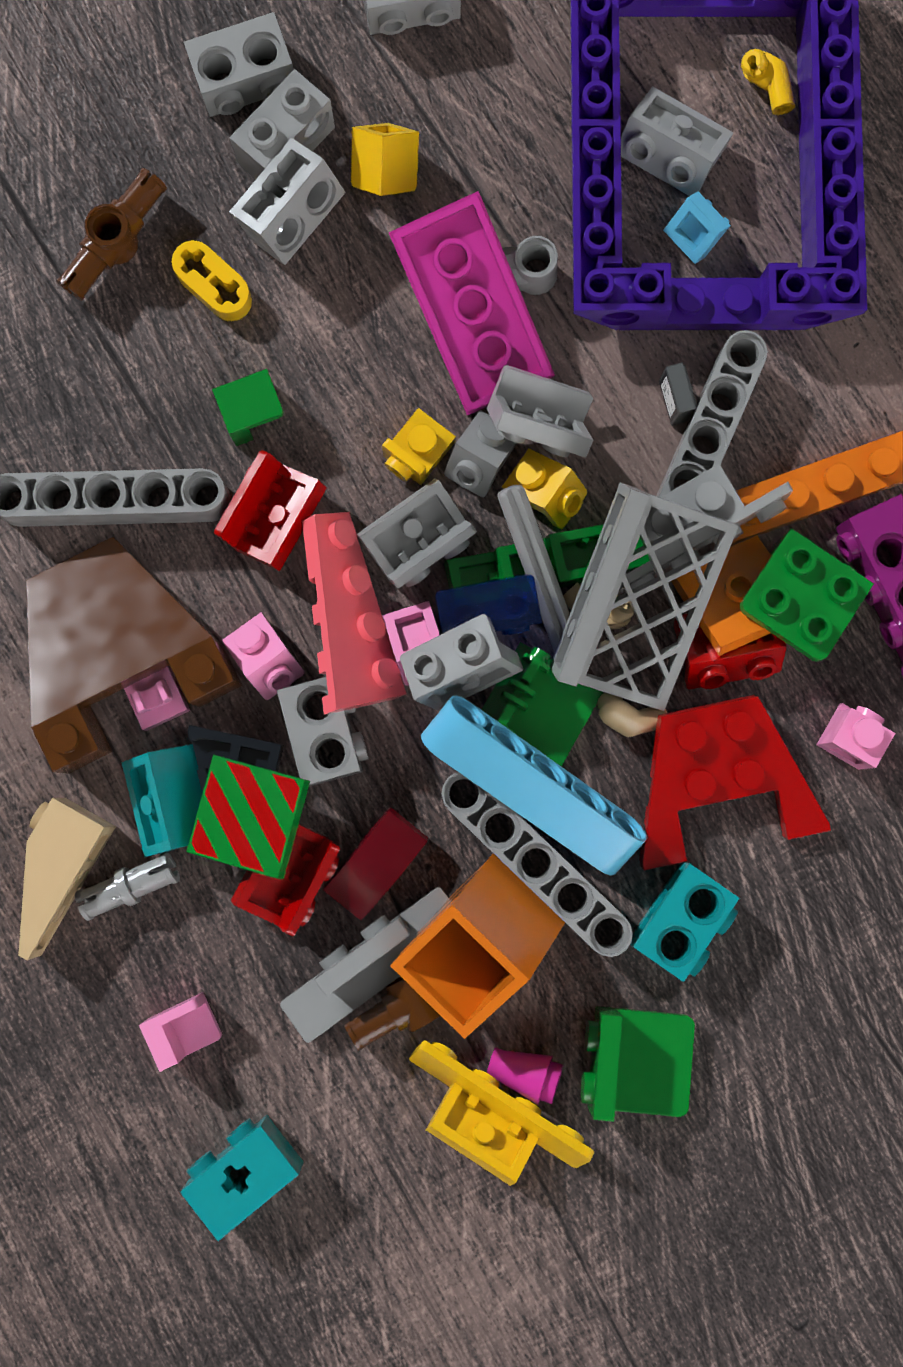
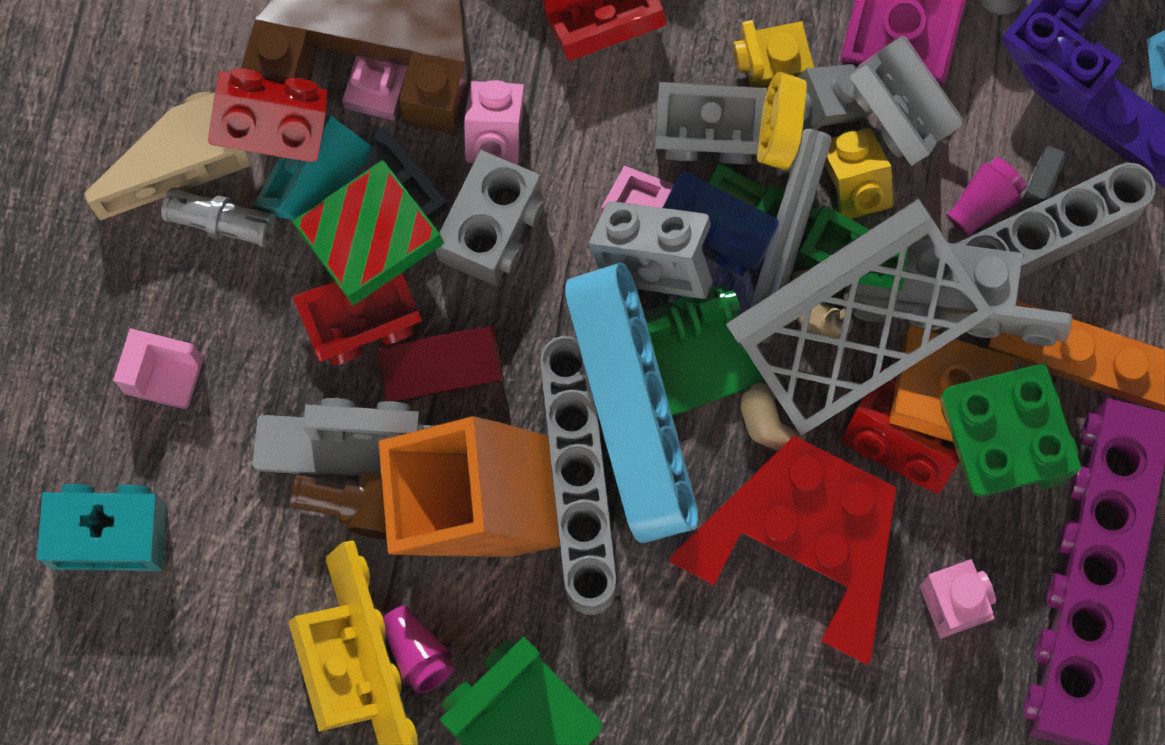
camera: 45 degrees right, 10 degrees down
(103, 792) = (268, 115): none -> red bracket
(353, 632) = (590, 148): coral wing -> none
(473, 498) = (782, 121): none -> yellow beam
(648, 435) = (987, 195): none -> dark pink cone
(672, 913) = (660, 617): teal brick -> none

